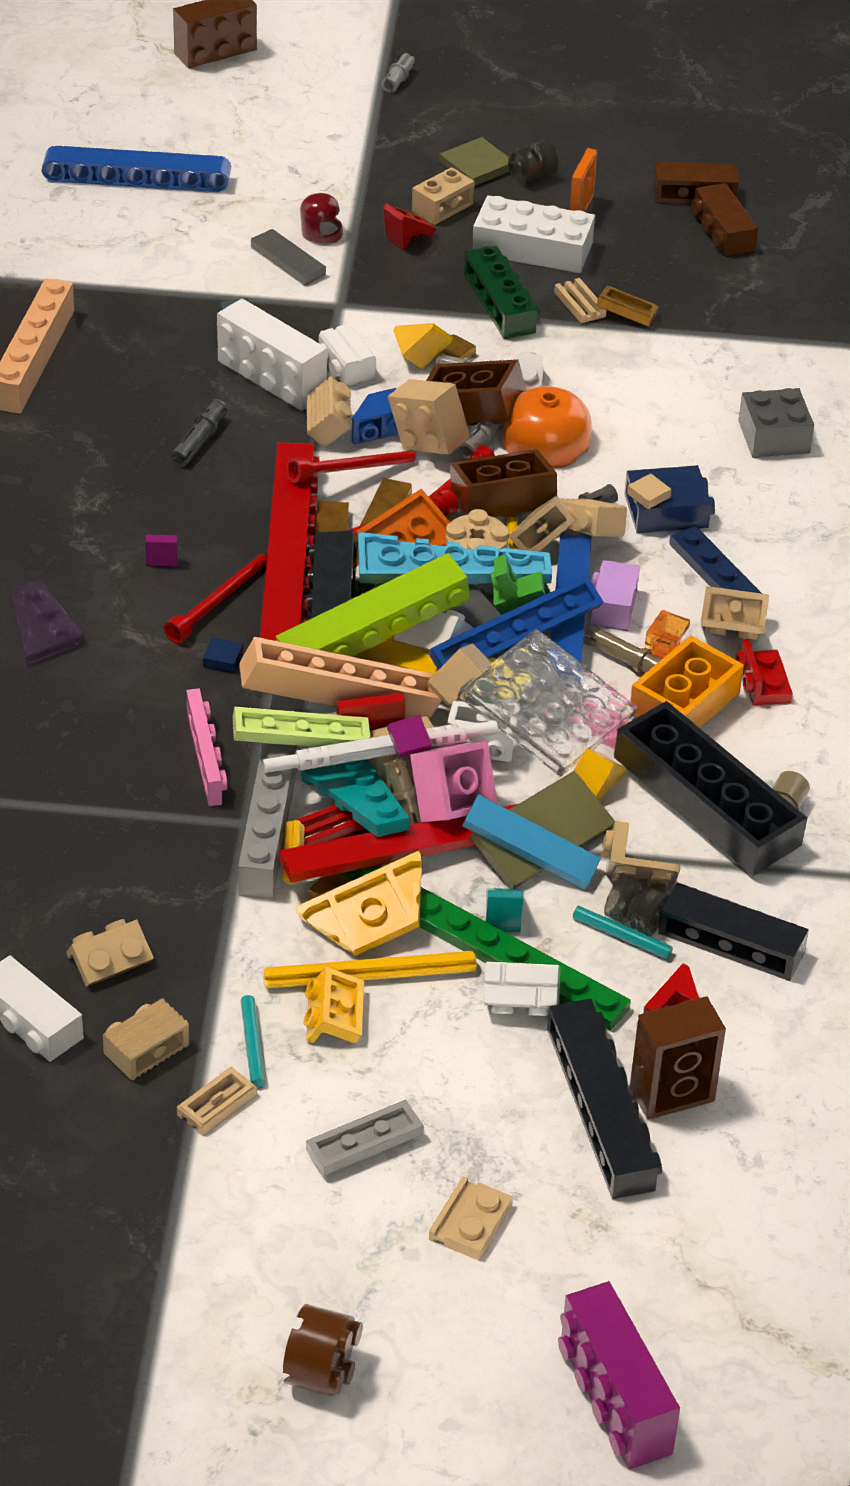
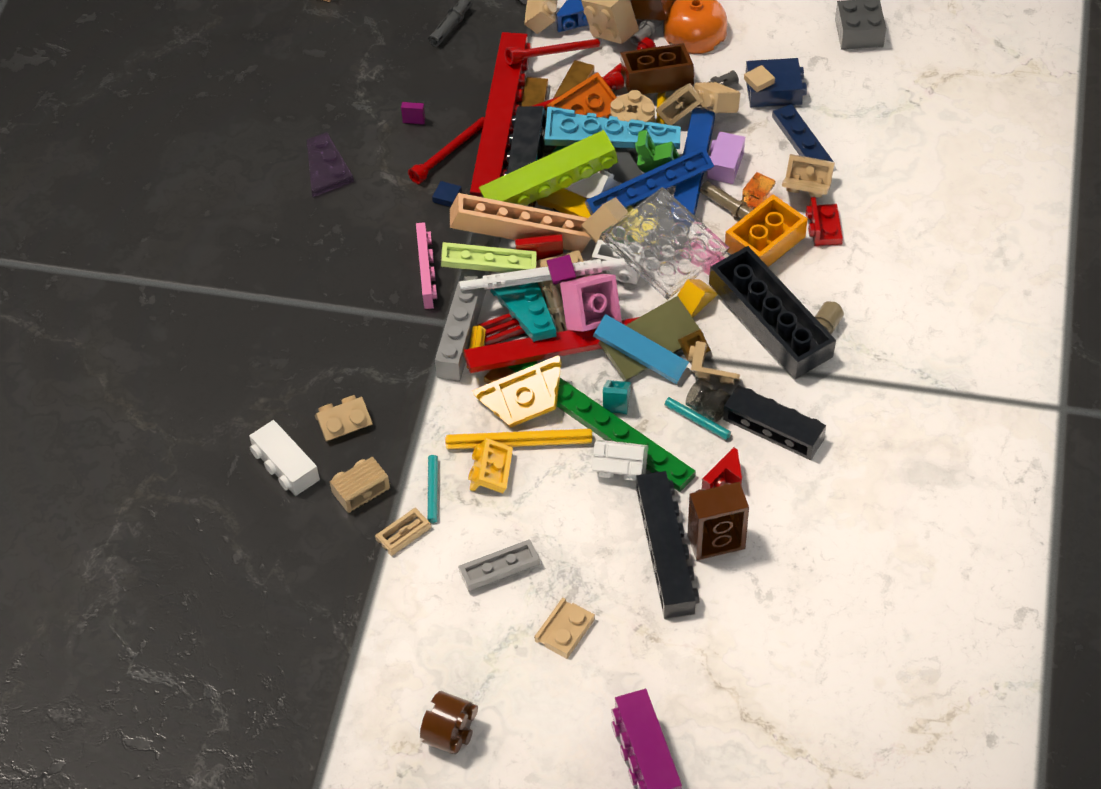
camera: 10 degrees right, 10 degrees up
(596, 832) = (690, 340): none -> pearl gold tile

